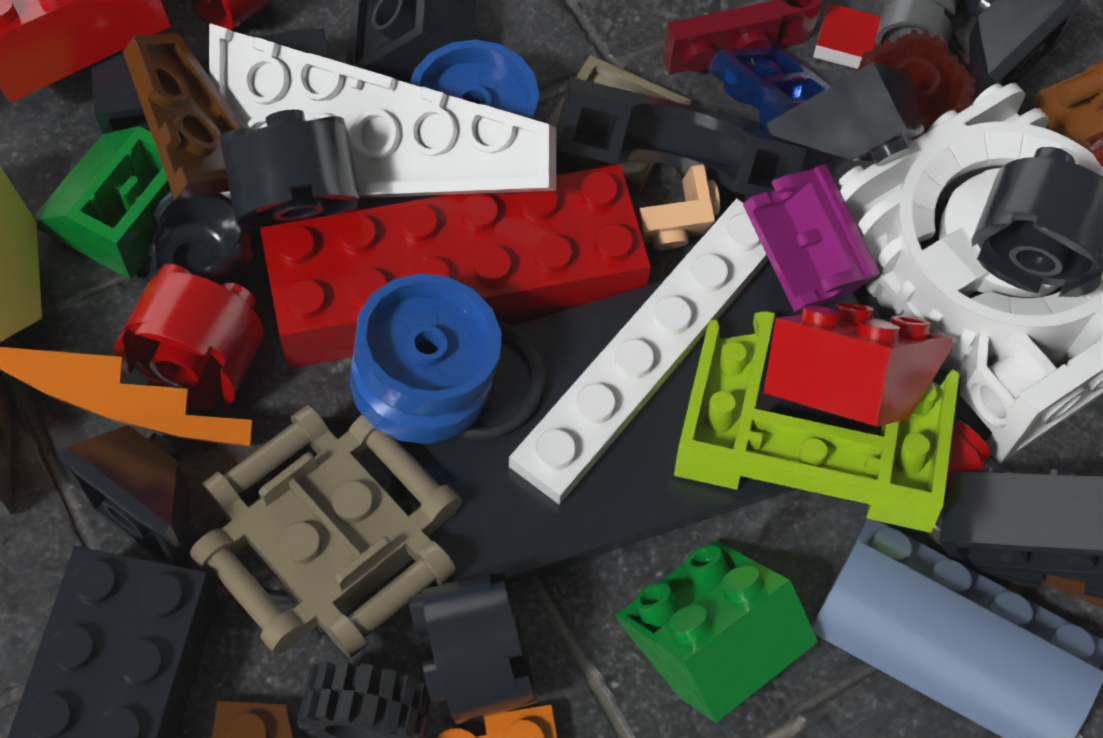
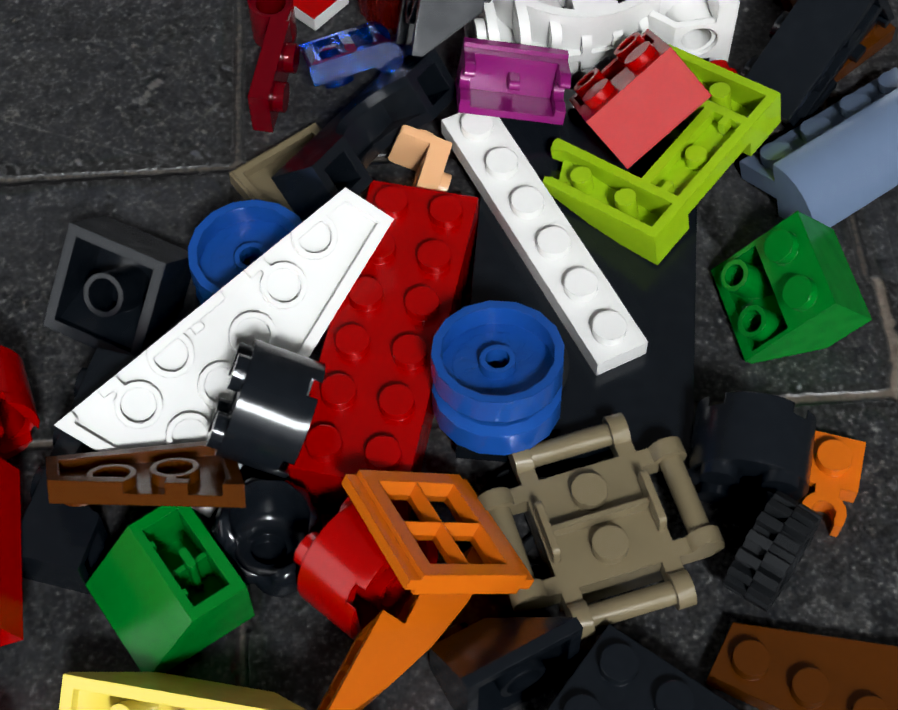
camera: 60 degrees left, 5 degrees down
(189, 324) = (372, 496): none -> orange piece

